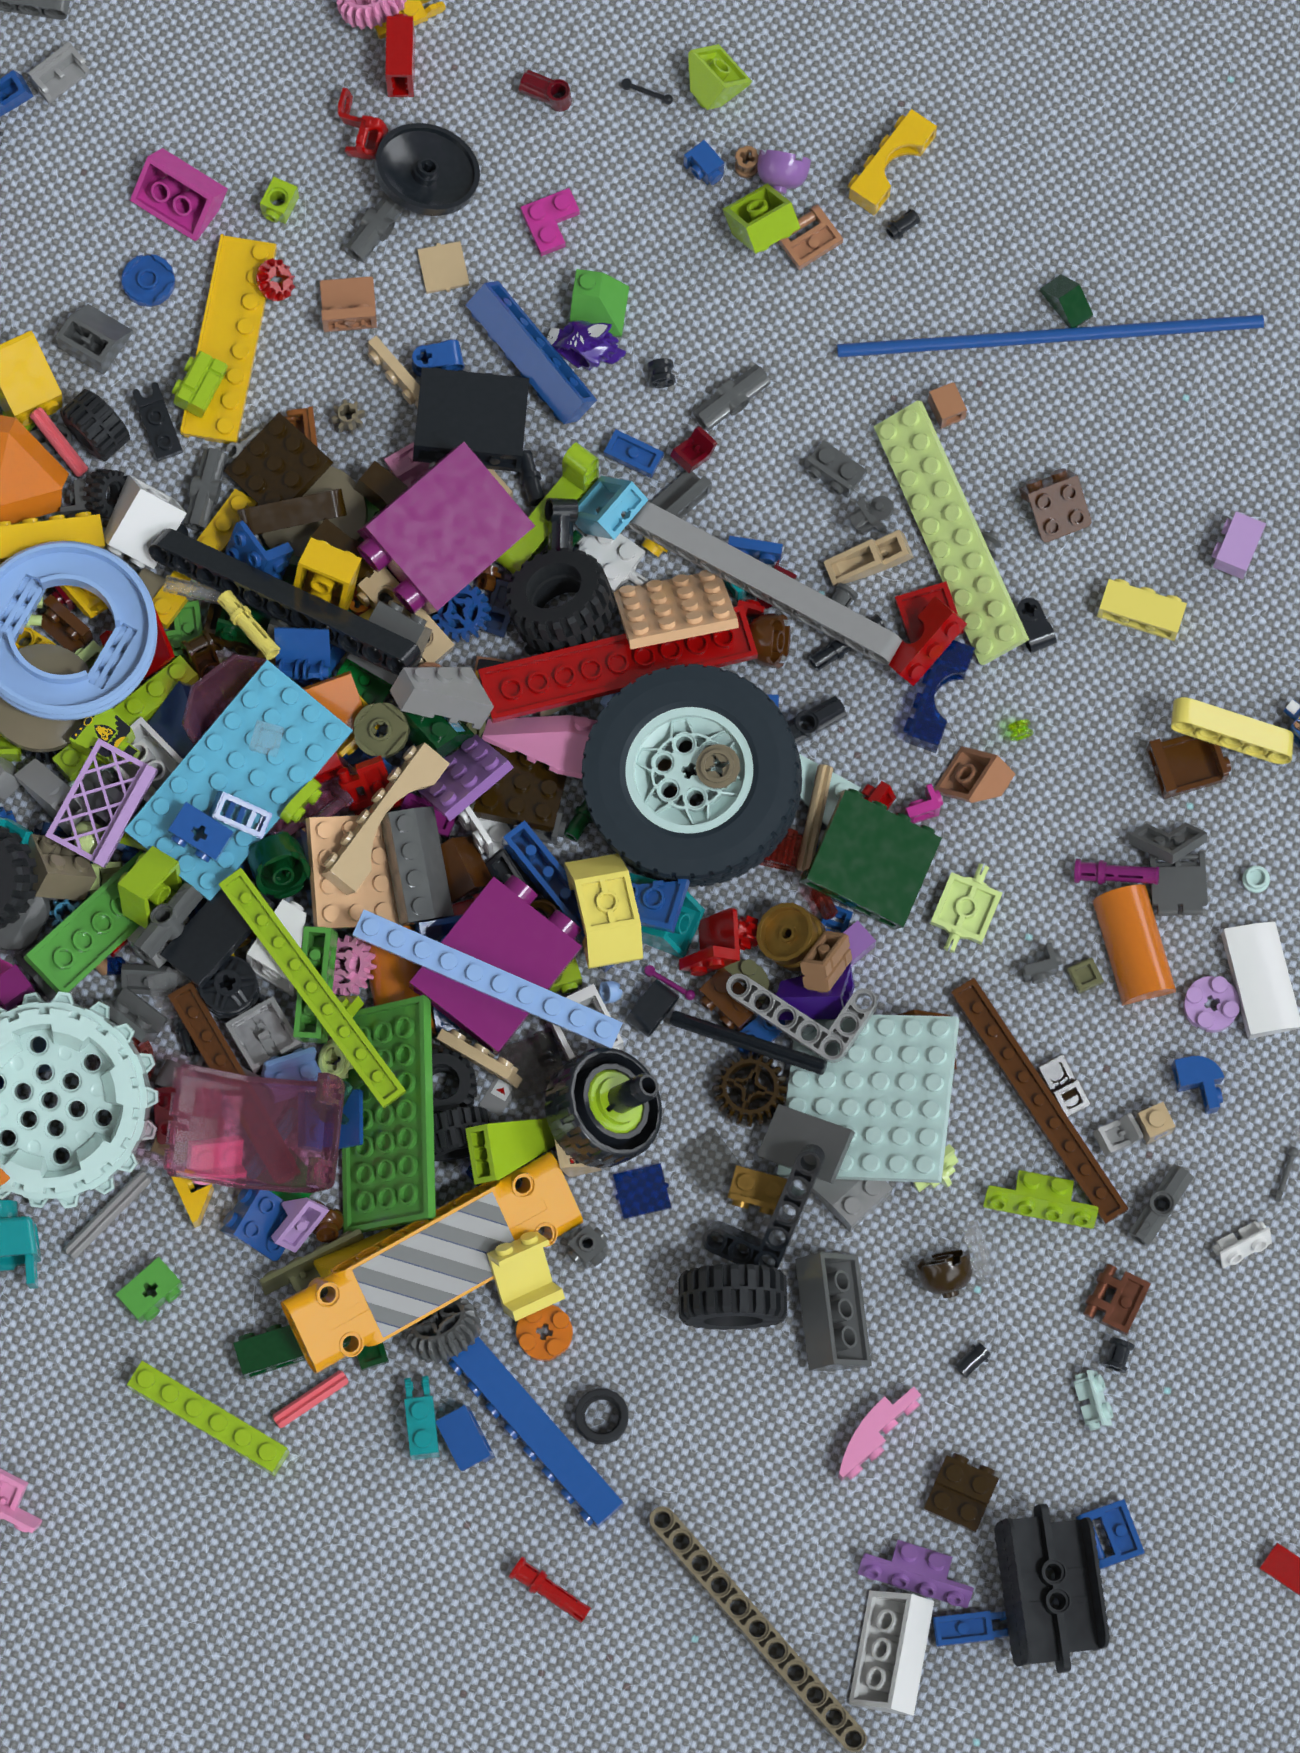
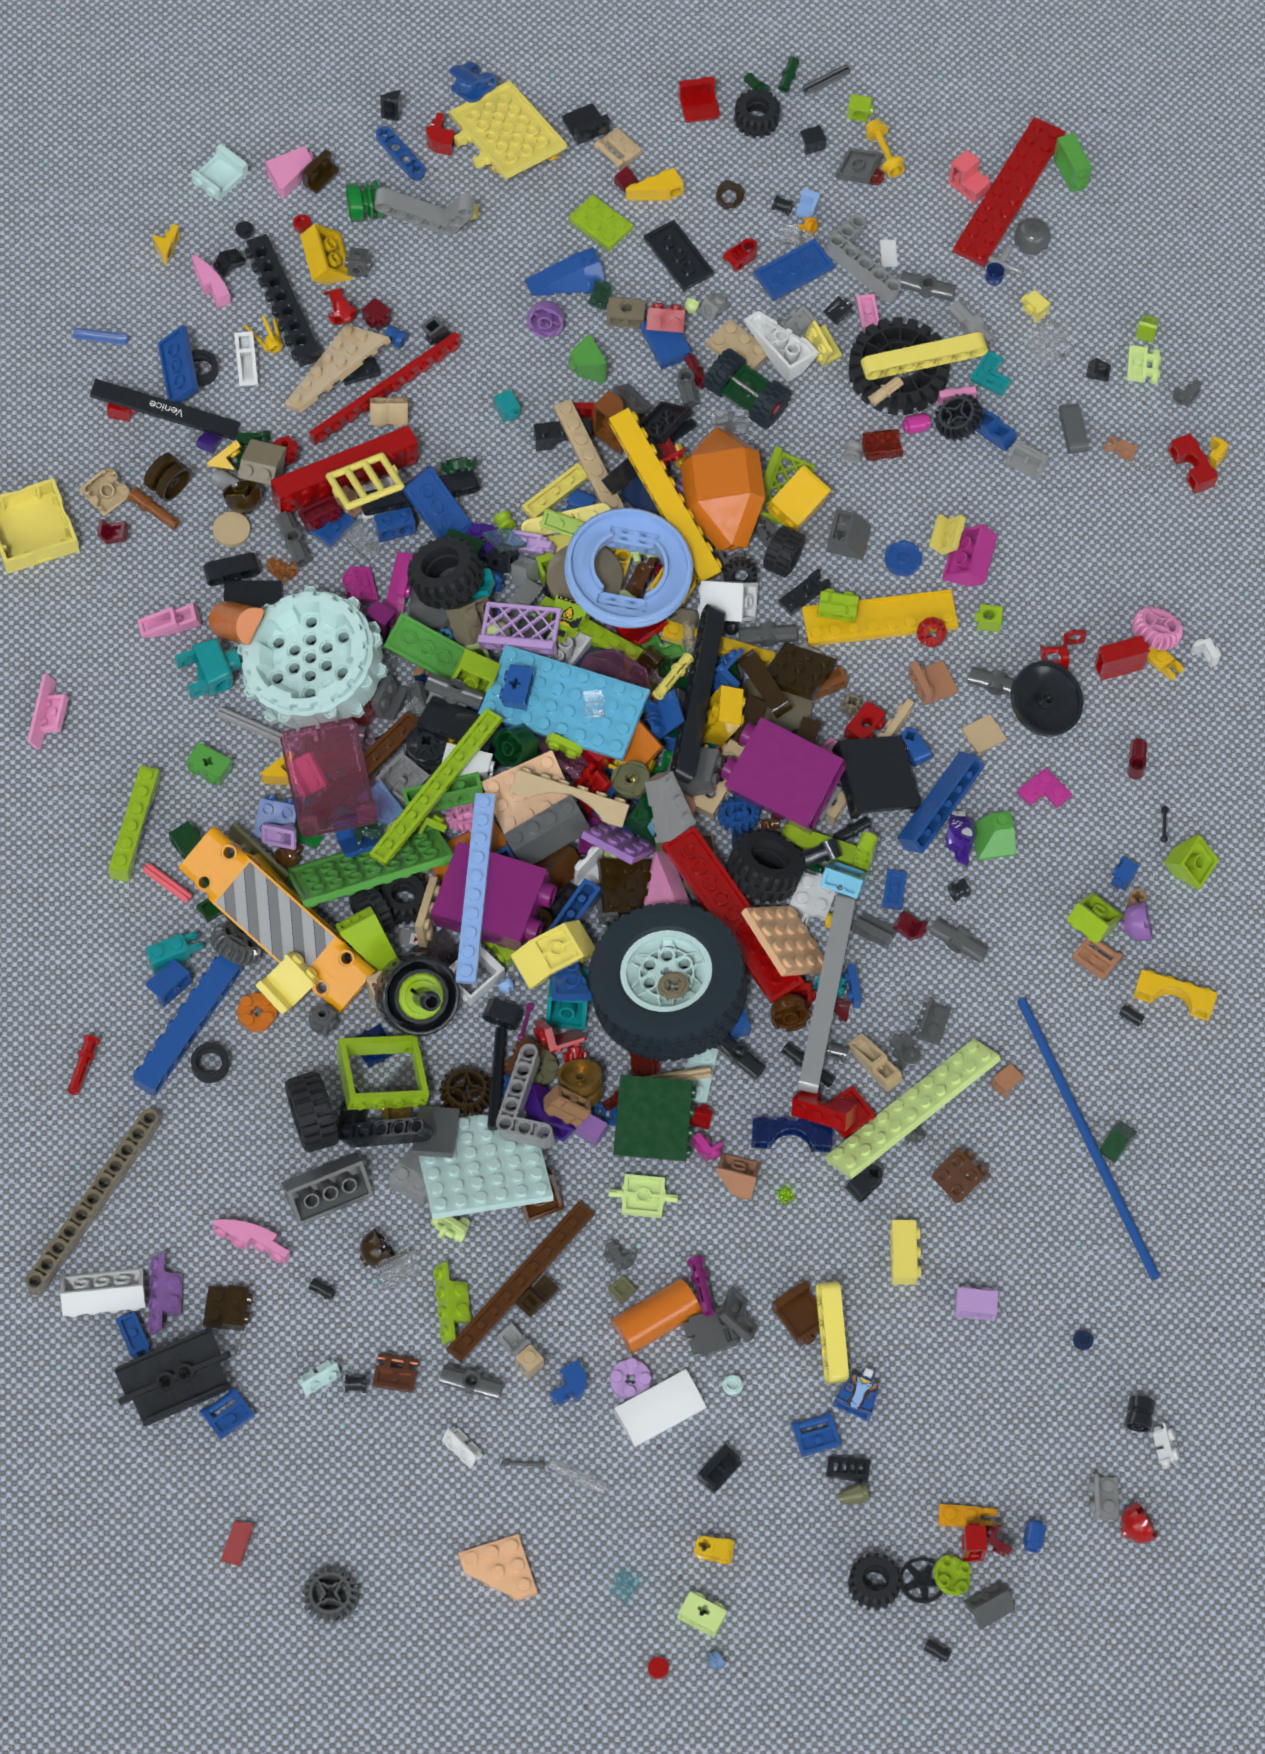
camera: 70 degrees right, 10 degrees down
(58, 442) = (765, 535): coral axle -> none
(136, 209) = (947, 533): none -> light yellow bracket
(218, 804) = (539, 692): slope -> none
(389, 423) = (869, 715): none -> red brick
(695, 1236) = (374, 1046): none -> lime window

